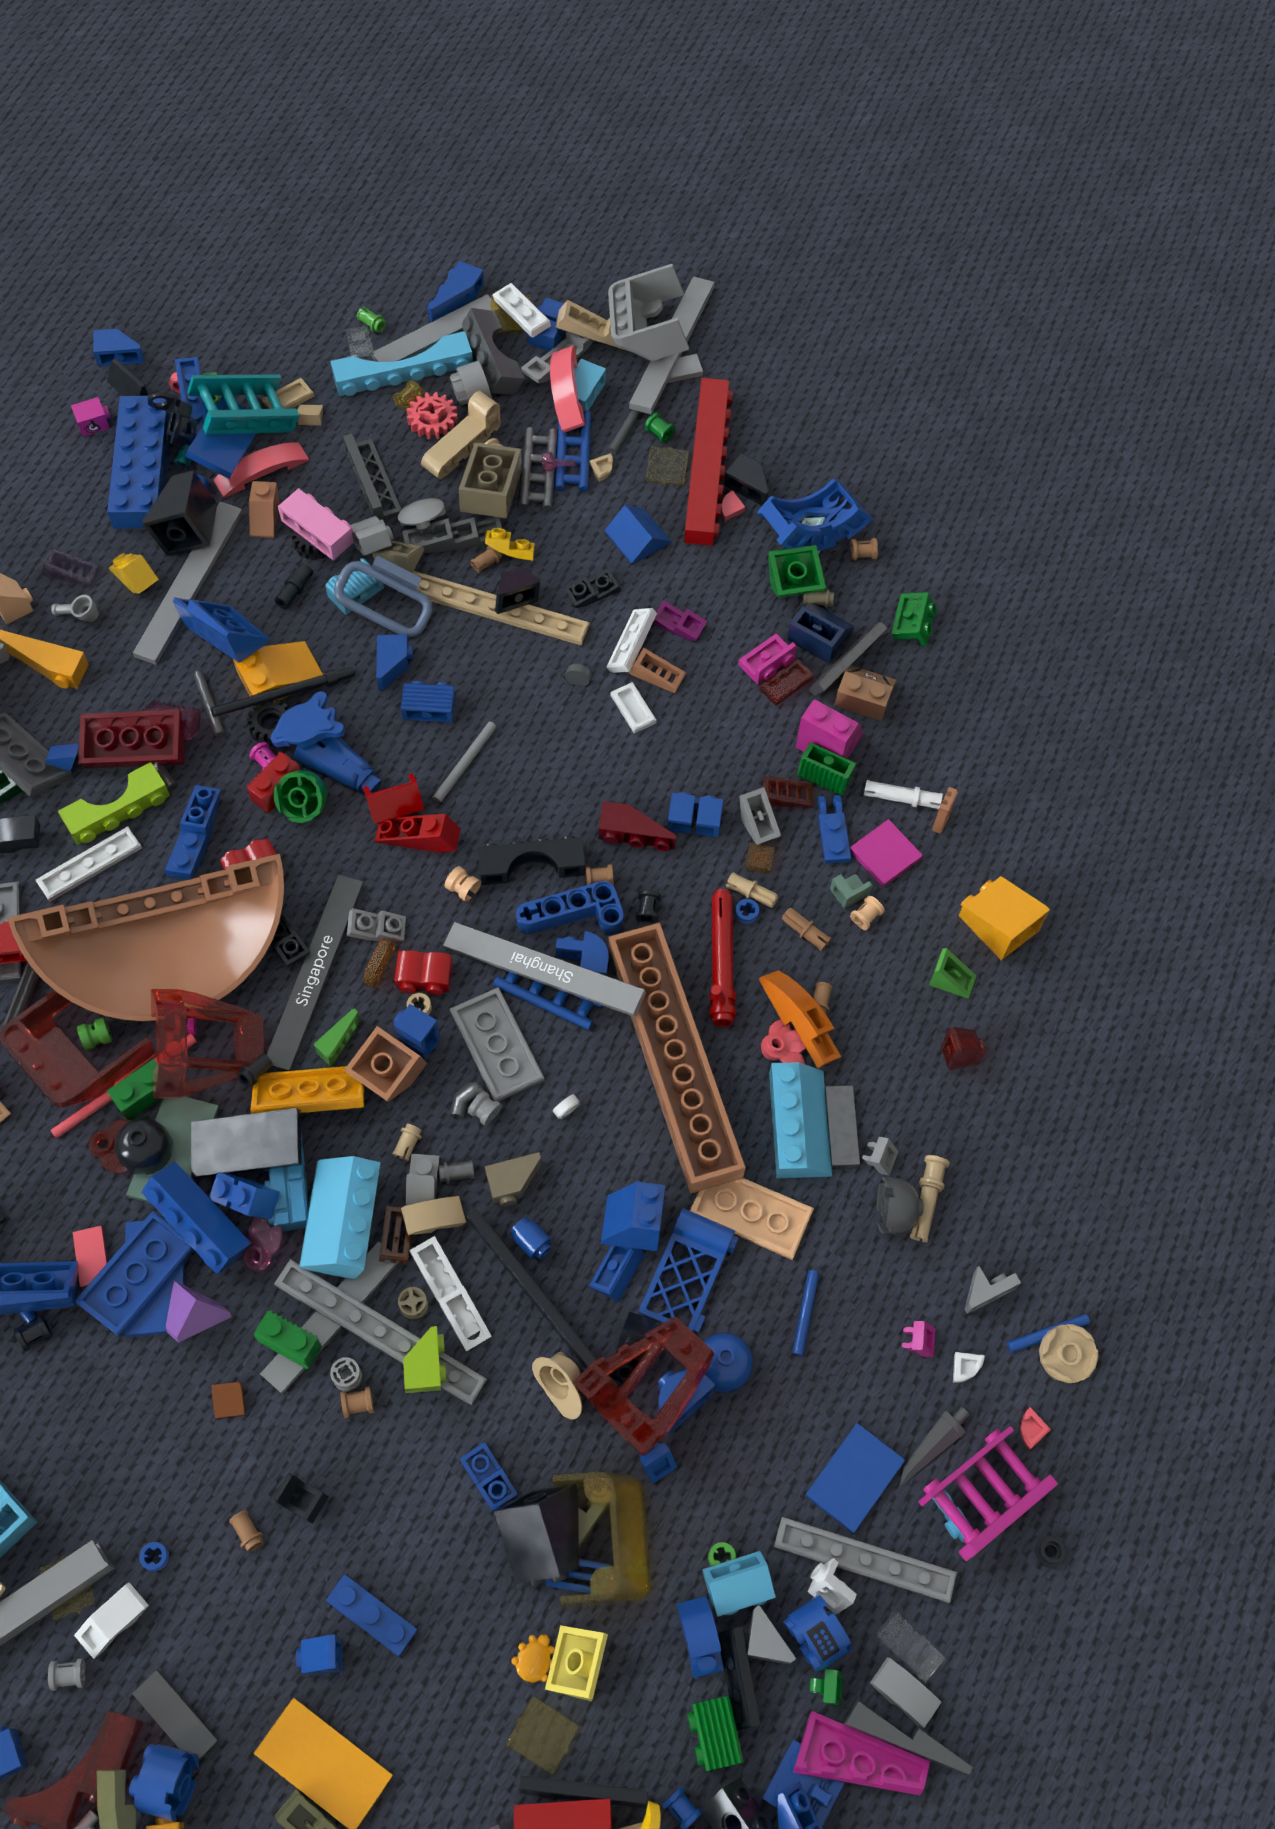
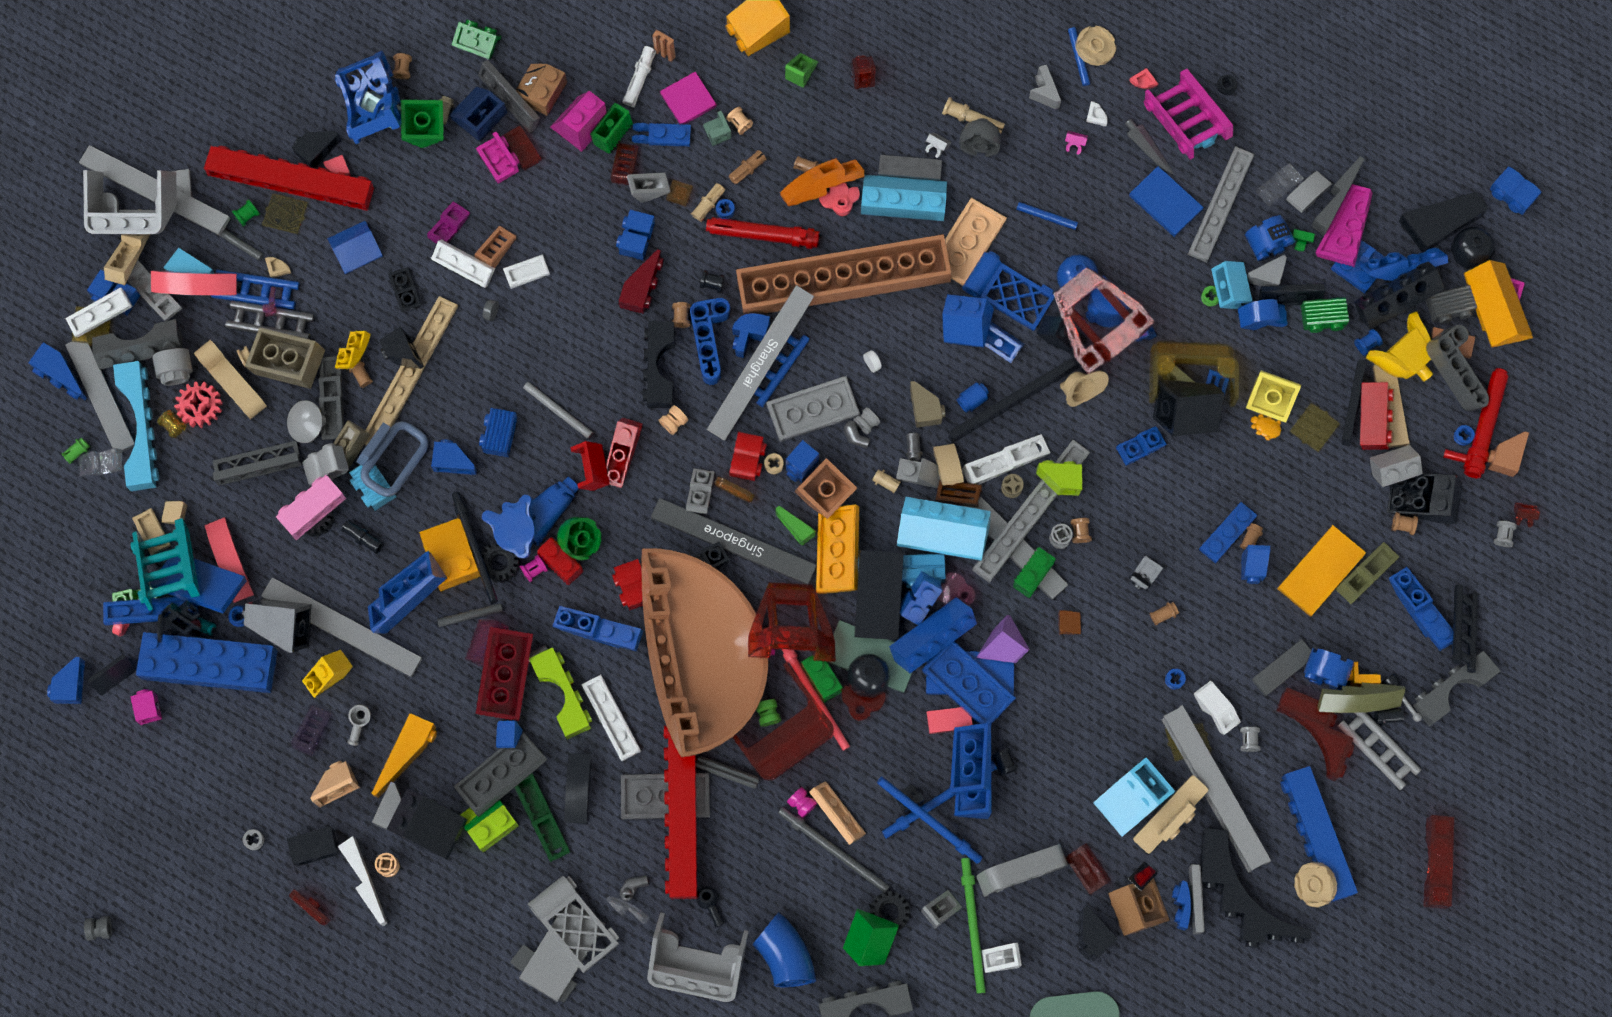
camera: 80 degrees left, 10 degrees up
(249, 1074) = (820, 590): black pin -> none
(263, 509) = (278, 557): nougat slope -> none
(365, 1650) = (1252, 535): none -> medium nougat pin
(830, 1588) = (1237, 229): white bracket -> none

